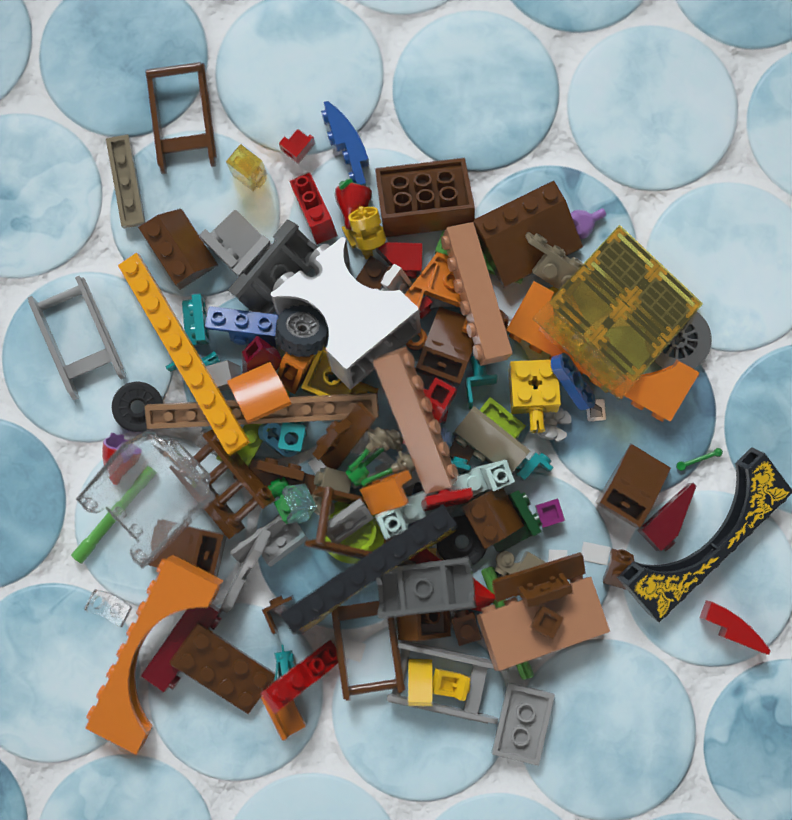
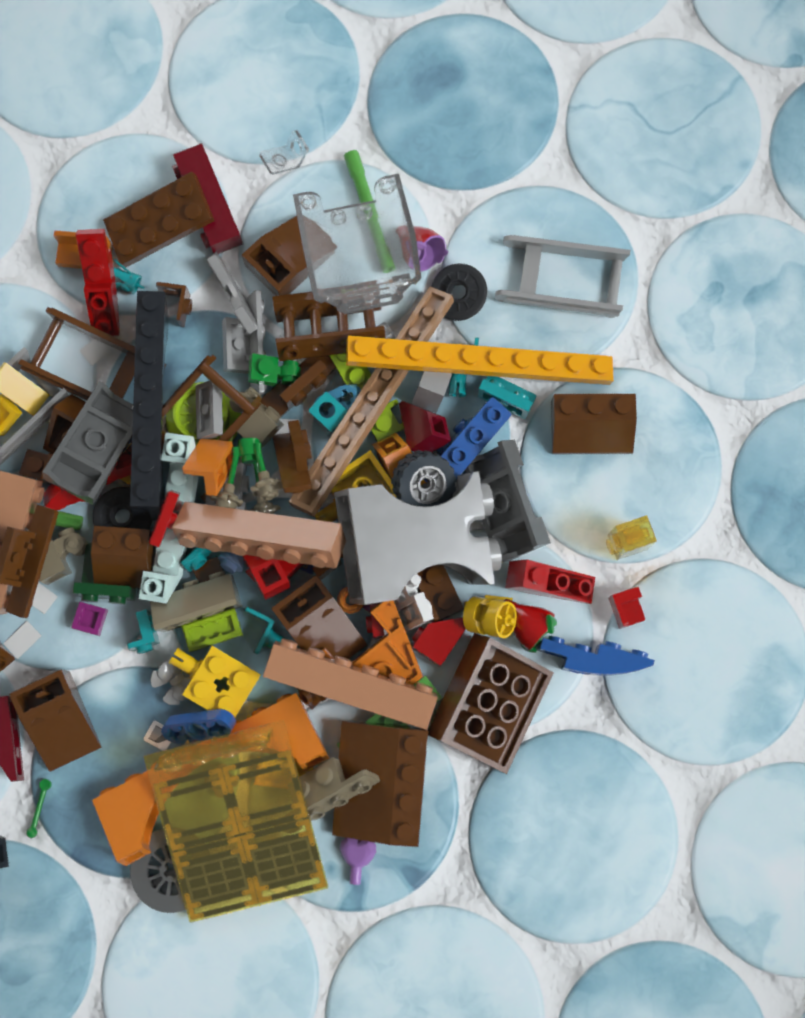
camera: 125 degrees right, 5 degrees down
(118, 711) = (254, 215): orange arch -> none
(125, 181) = (694, 414): dark tan plate -> none
(183, 143) = (699, 495): reddish brown piece -> none
(231, 239) = (565, 481): light grey bracket -> none
(253, 256) = (533, 486): light grey plate -> none
(259, 392) = (389, 403): orange slope -> none
(299, 502) = (259, 378): clear light blue bracket -> none

